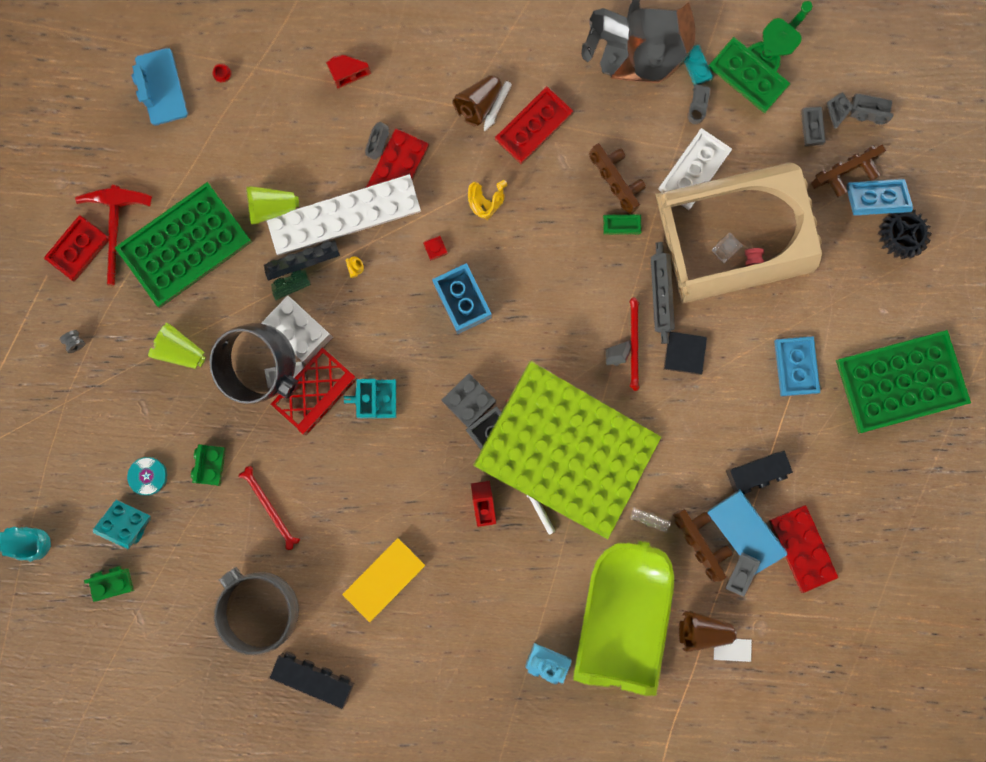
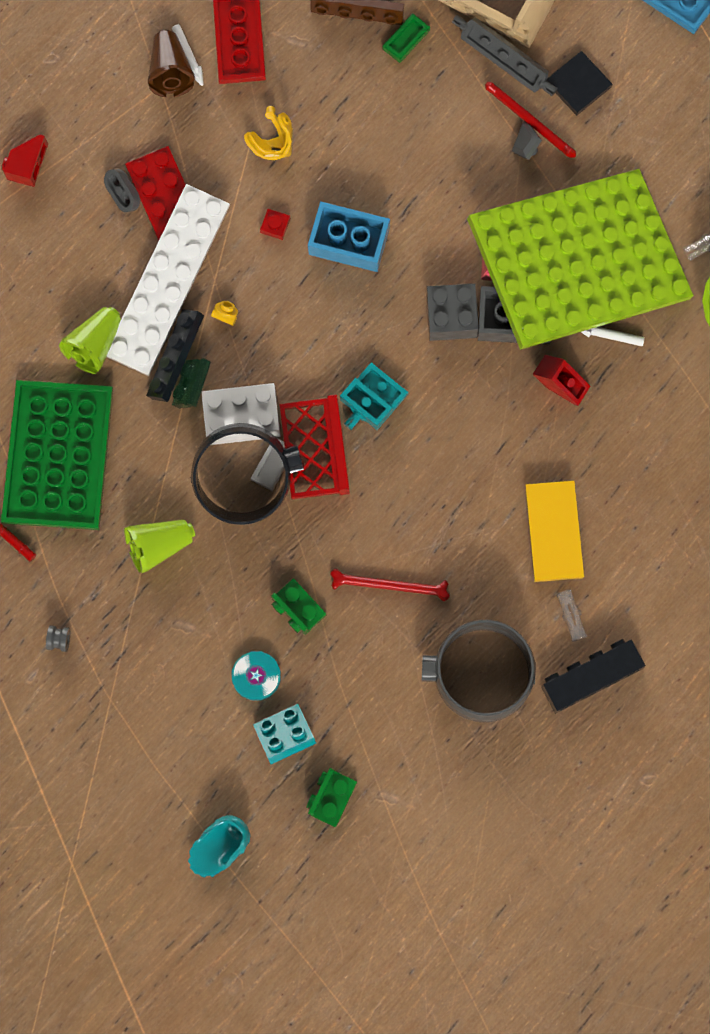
camera: 45 degrees left, 5 degrees down
(333, 646) = (566, 599): none -> clear pin

